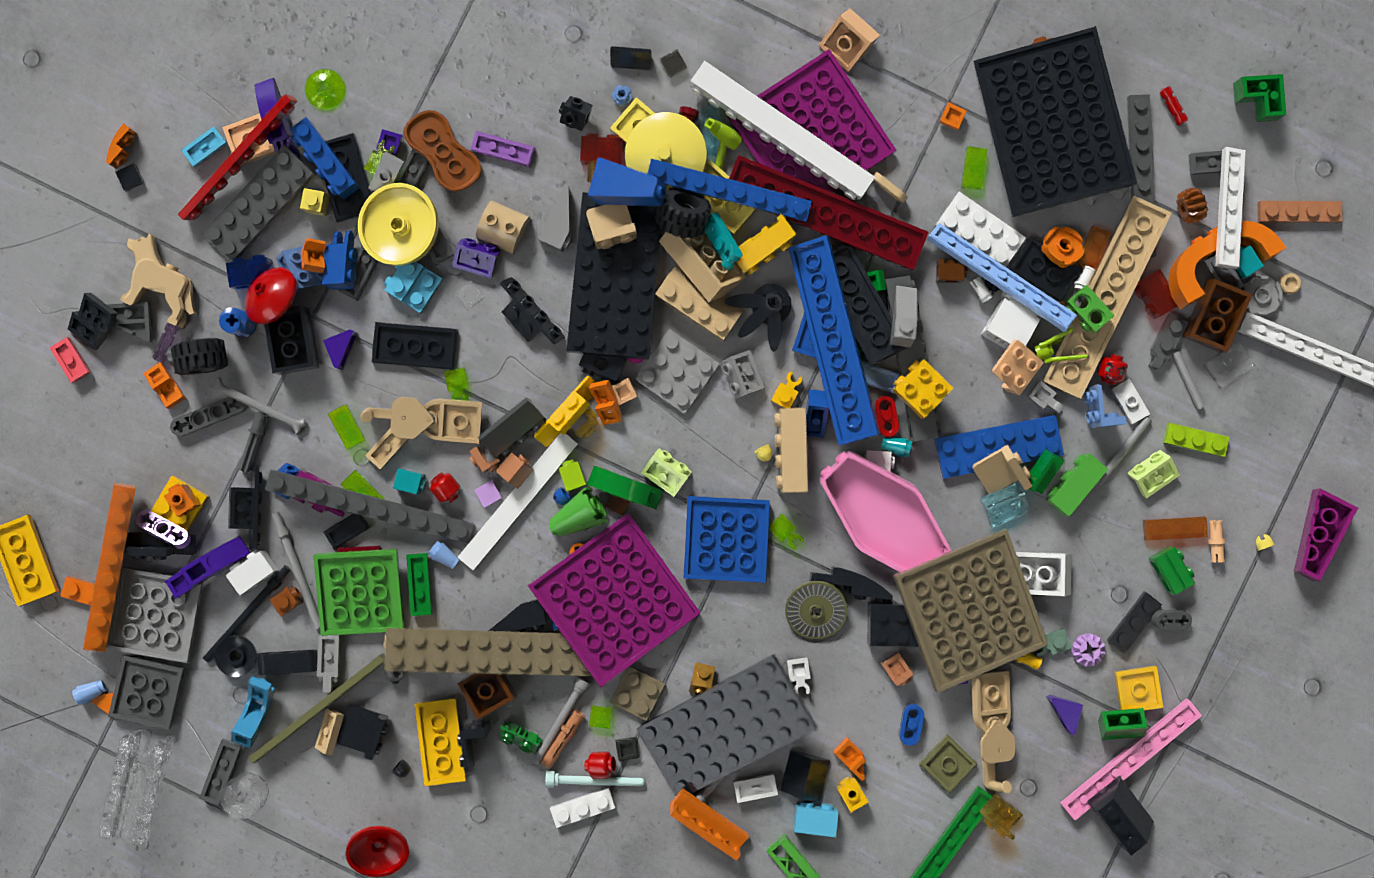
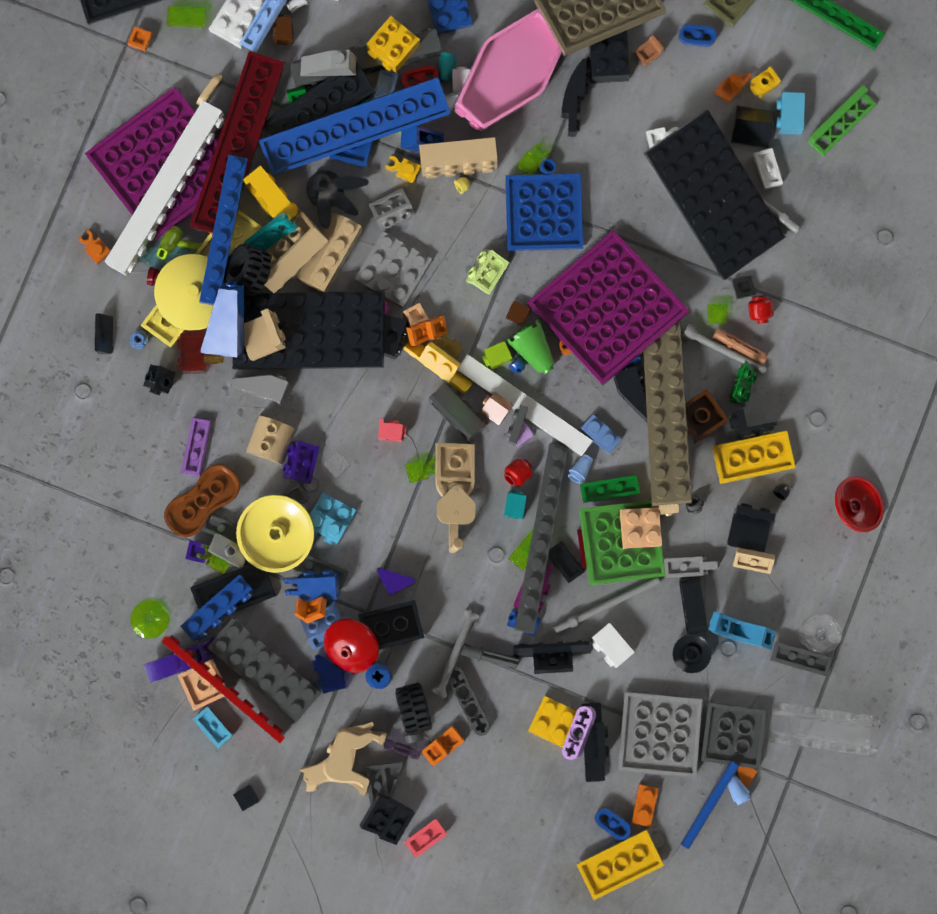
camera: 90 degrees left, 5 degrees down
(67, 555) = (612, 824): none -> blue plate
(76, 661) = (710, 804): none -> blue piece
(109, 567) = (618, 777): orange brick -> none
(116, 153) = (224, 809): orange slope -> none
(181, 500) = (549, 714): orange brick -> none
(207, 566) = (611, 686): dark purple slope -> none
(272, 584) = (620, 625): black bar -> none
(286, 600) = (635, 612): dark orange bracket -> none
(314, 202) = (258, 616): light yellow brick -> none
(318, 708) = (732, 571): olive tile -> none
(346, 427) = (468, 569): clear neon green plate -> none
(371, 613) = (640, 528): none -> light nougat plate
(385, 449) = (486, 530): tan plate -> none
(414, 346) = (387, 513): black tile -> none
(480, 460) = (489, 442): nougat bracket -> none
(480, 579) = (601, 434): none -> medium blue plate
(486, 486) = (513, 432): none -> dark grey plate
(500, 356) = (391, 431): none -> coral brick
(526, 315) = (352, 410): black bracket -> none
(554, 779) = (777, 351): light aqua piece -> none
(582, 807) = (801, 323): white plate -> none
(624, 487) = (503, 307): green arch -> none
(637, 692) = (692, 282): dark tan plate -> none
(673, 63) = (106, 295): clear smoke tile -> none
(701, 678) = (673, 224): pearl gold bracket -> none
(708, 823) = (803, 207): orange fence -> none
(725, 56) = (96, 249): none -> orange plate
(779, 549) = (548, 163): none -> blue hinge
(806, 621) = (603, 140): piece -> none
(849, 39) = (74, 136): light nougat slope -> none

